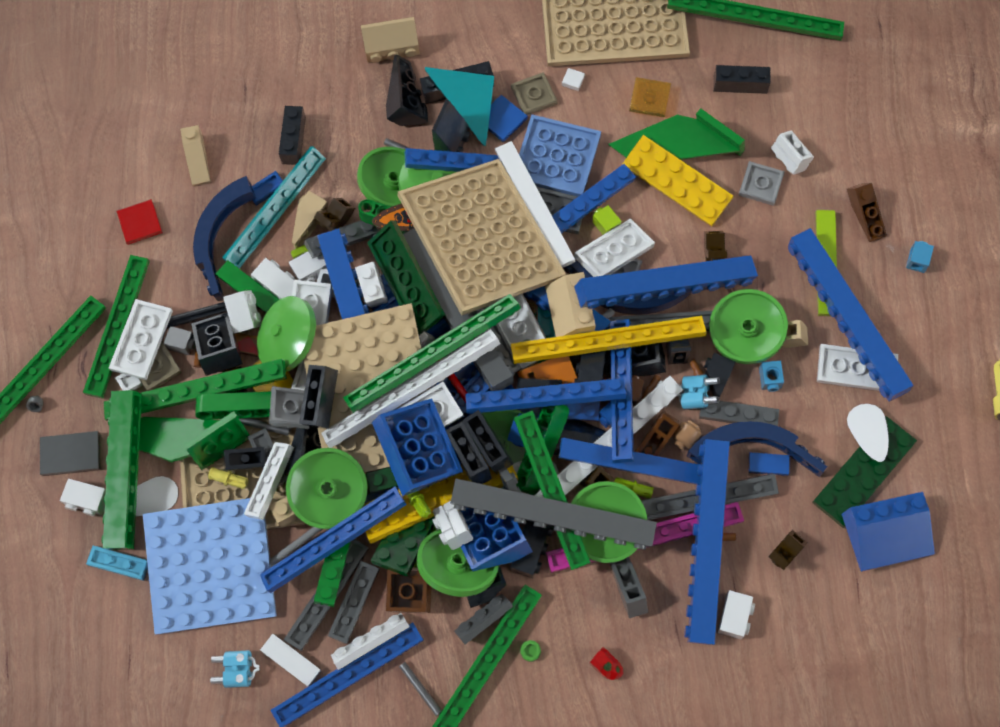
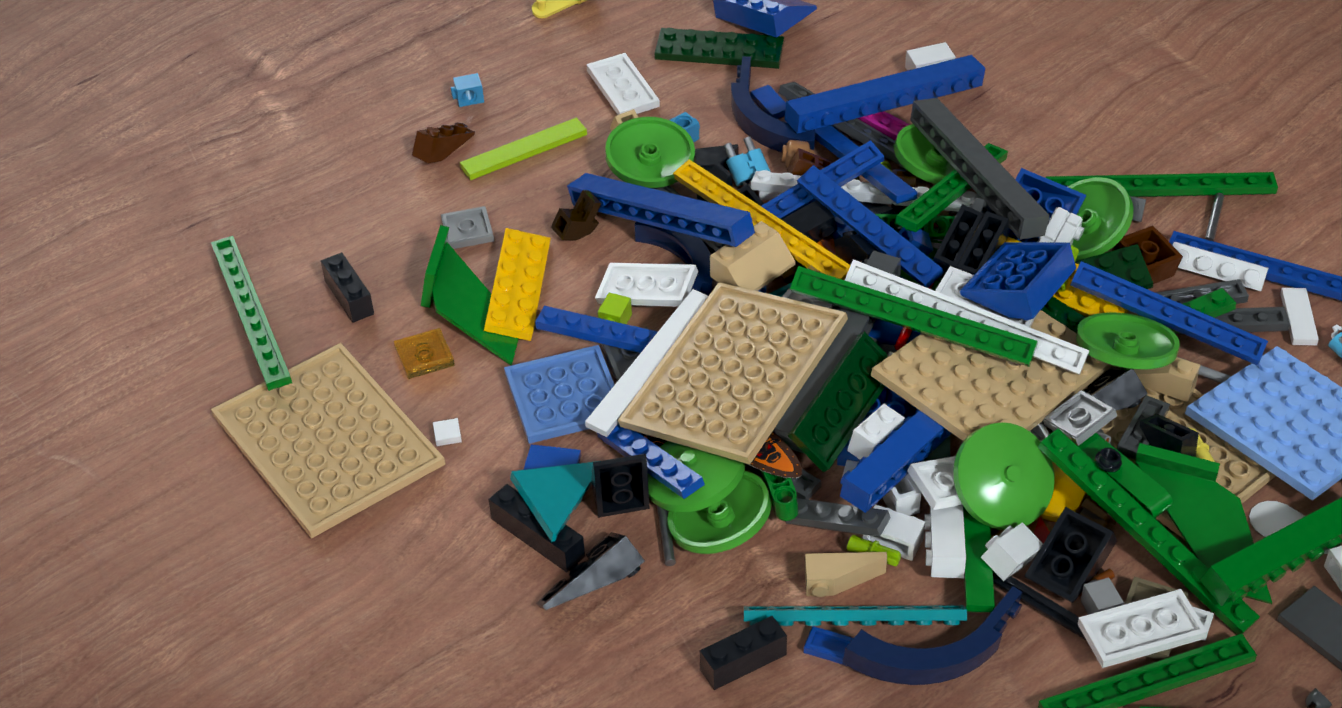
camera: 125 degrees left, 25 degrees down
(243, 392) = (1108, 460): none -> black plate
(268, 481) = (1168, 397): white plate -> none
(318, 396) = (1049, 380): black brick -> none
(336, 214) = (807, 540): dark brown brick -> none
(390, 38) = (527, 624): tan slope -> none
(530, 651) = (1099, 166): bright green tile -> none
(534, 94) = (493, 458): dark tan tile -> none
(607, 665) = (1057, 117): red rock -> none
(629, 588) = (984, 120): dark grey slope -> none
(736, 412) = (732, 130): dark grey plate -> none
(787, 550) = (843, 57): dark brown brick -> none
(792, 152) = (417, 210): white brick -> none
(850, 315) = (572, 102): blue brick -> none
(869, 430) = (678, 54): white sticker -> none

